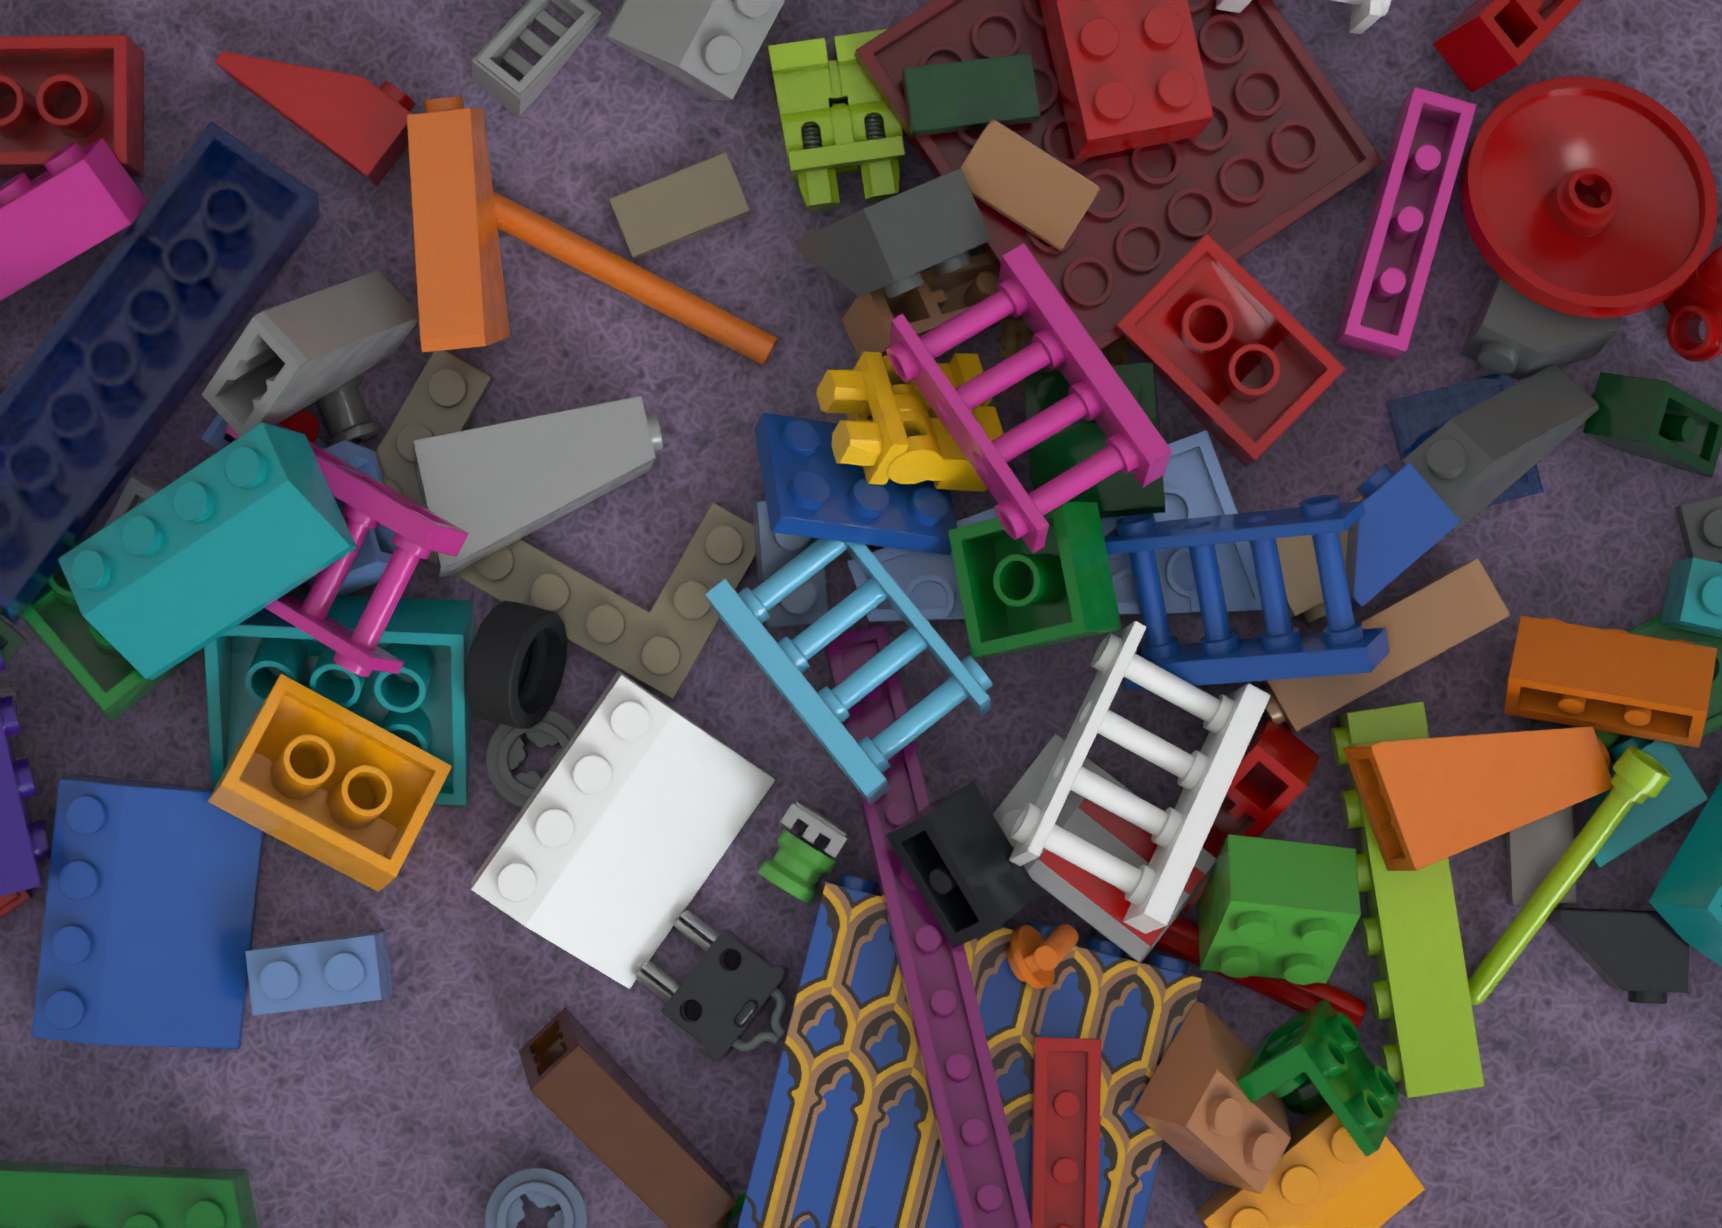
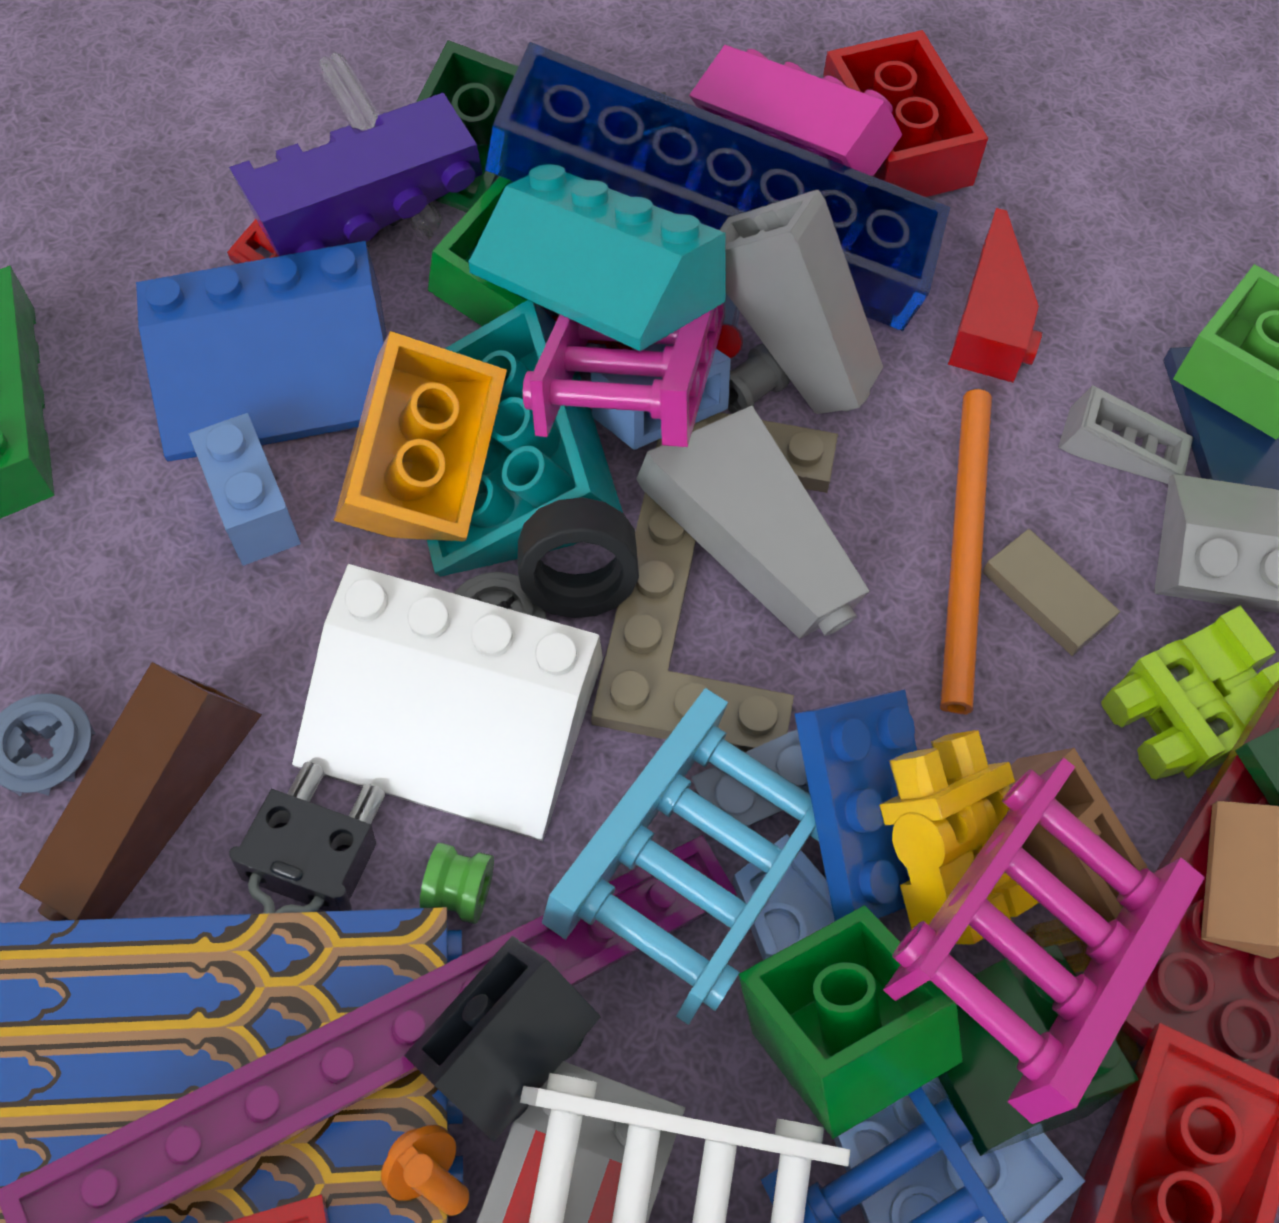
camera: 70 degrees right, 25 degrees down
(455, 229) = (943, 402): orange slope -> none
(817, 824) = (504, 879): light grey tile -> none
(901, 237) = (1144, 764): dark grey slope -> none

